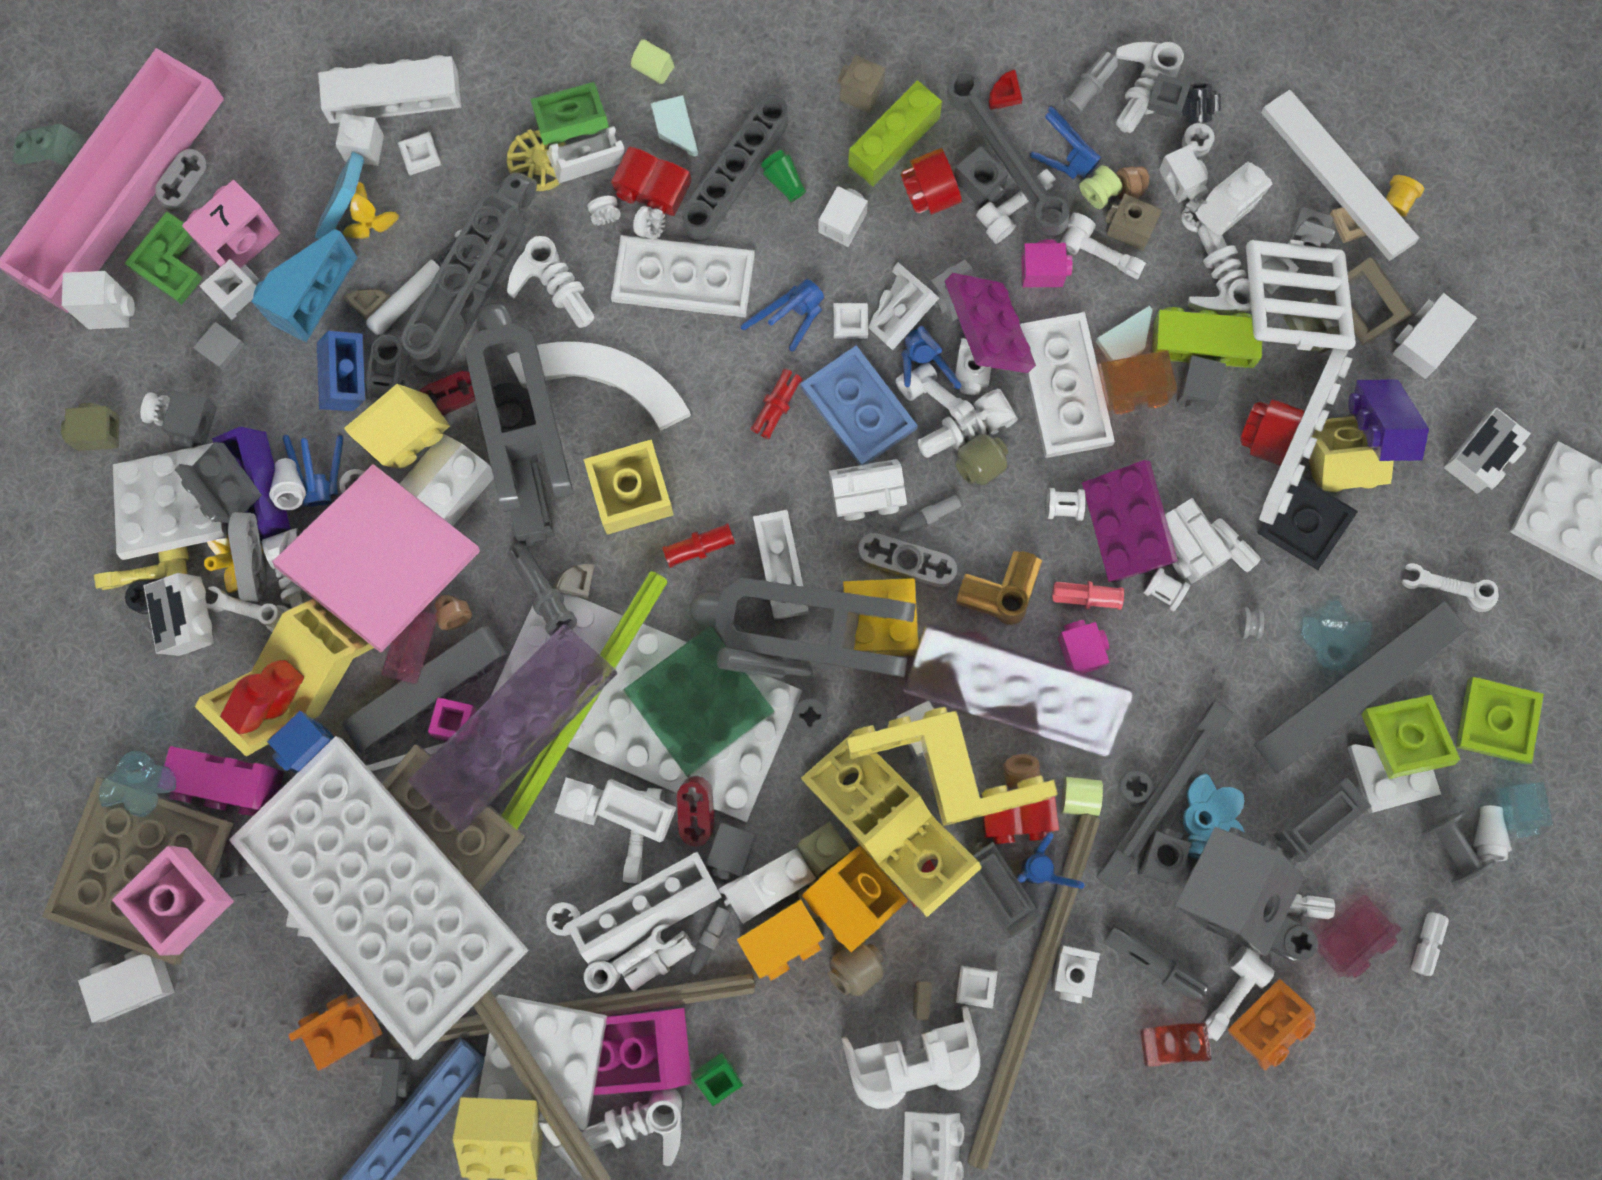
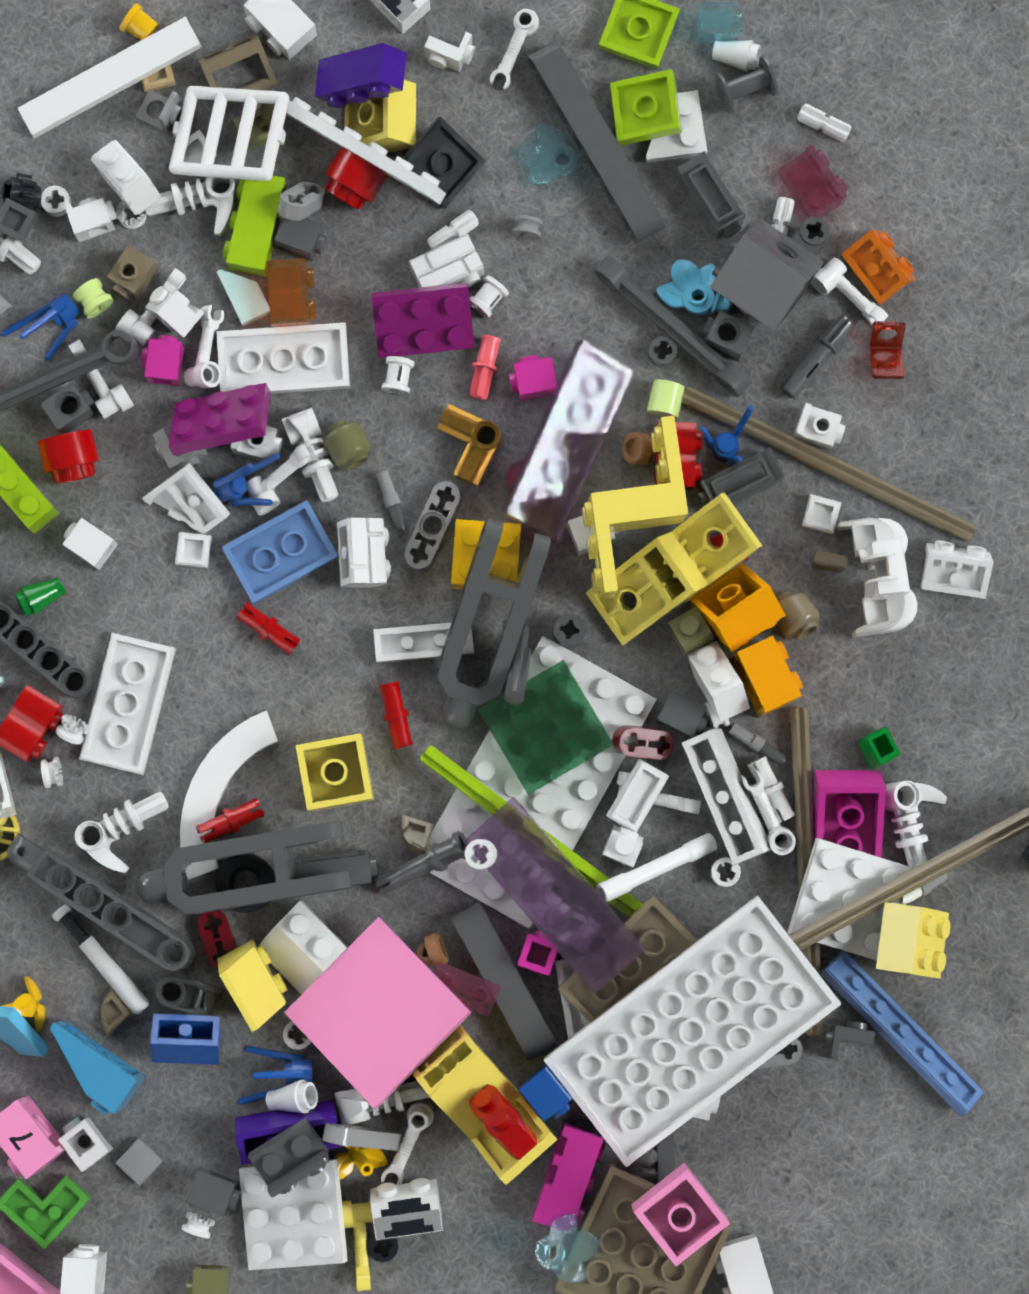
camera: 90 degrees left, 5 degrees up
(337, 1031) = (805, 1081): orange bracket -> none
(537, 806) = (627, 881): none -> white piece
(547, 652) = (470, 852): none -> white bush
(570, 388) = (230, 821): none -> red pin
(800, 299) = (168, 591): blue plant -> none
(1041, 309) = (206, 373): none -> white brick
(1099, 264) = (173, 310): none -> white brick
(1132, 182) = (91, 269): medium nougat tile -> none
(1239, 378) = (301, 201): none -> light grey beam
(1428, 510) = (446, 55): none -> white bracket

